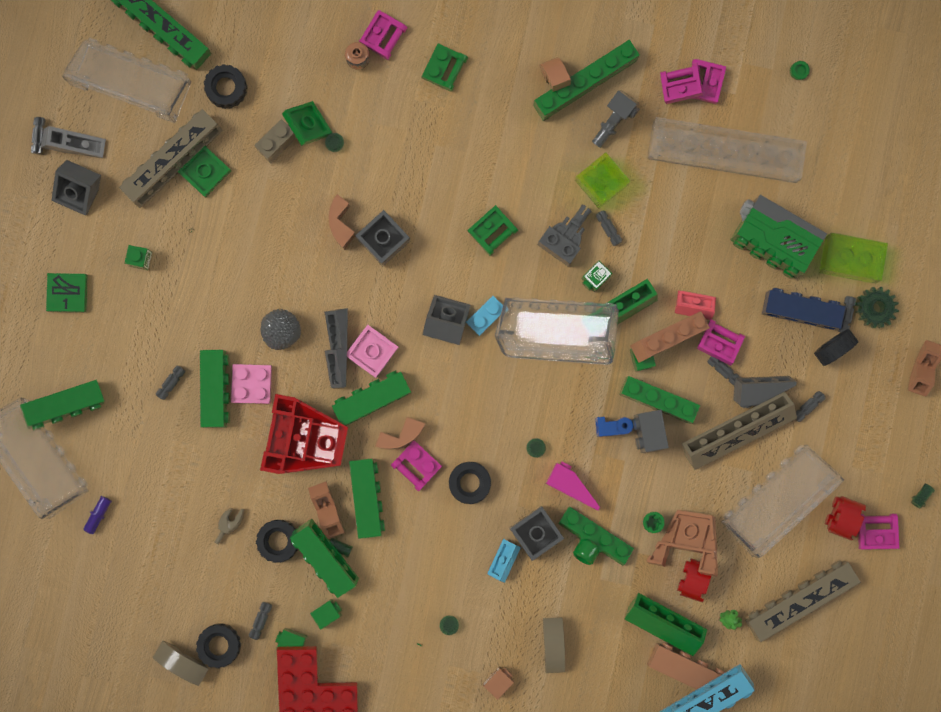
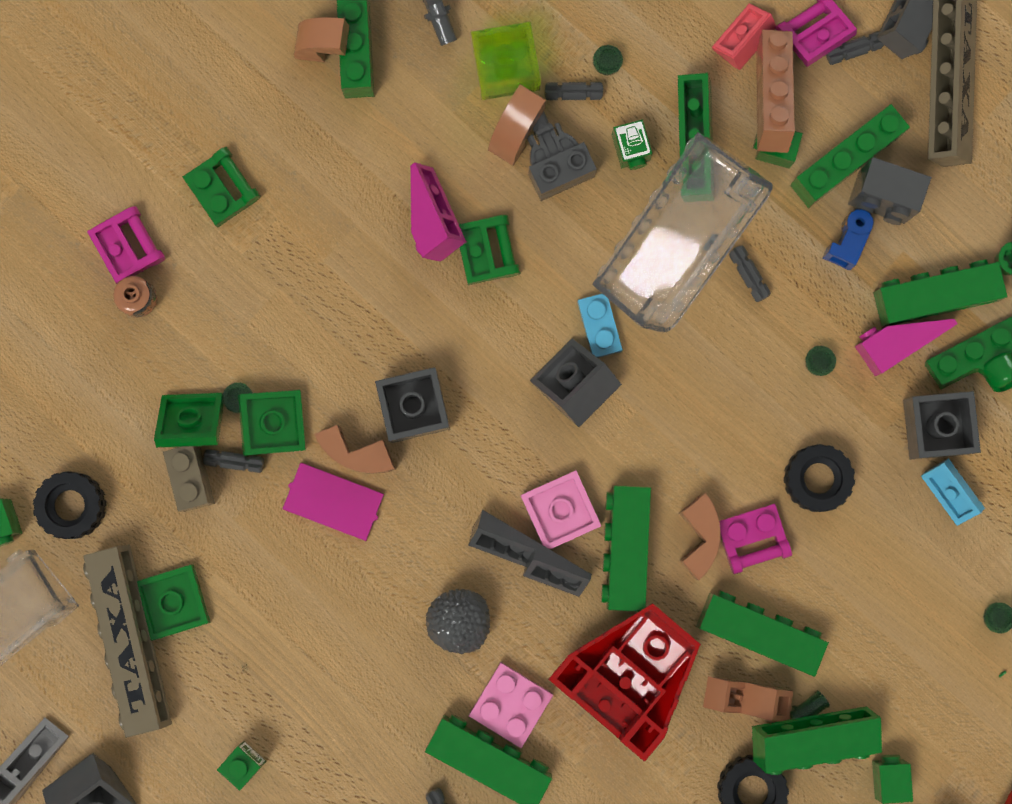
camera: 55 degrees left, 0 degrees up
(298, 159) = (233, 461): none -> dark grey axle
(307, 226) = (333, 501): none -> dark pink piece
(331, 168) = (271, 422): none -> green tile
(492, 190) = (432, 218): none -> dark pink slope
(562, 381) = (749, 273): none -> dark grey axle
(569, 205) = (516, 124): none -> nougat brick
(611, 494) = (939, 294): none -> green brick
(637, 236) = (607, 60): none -> clear green plate

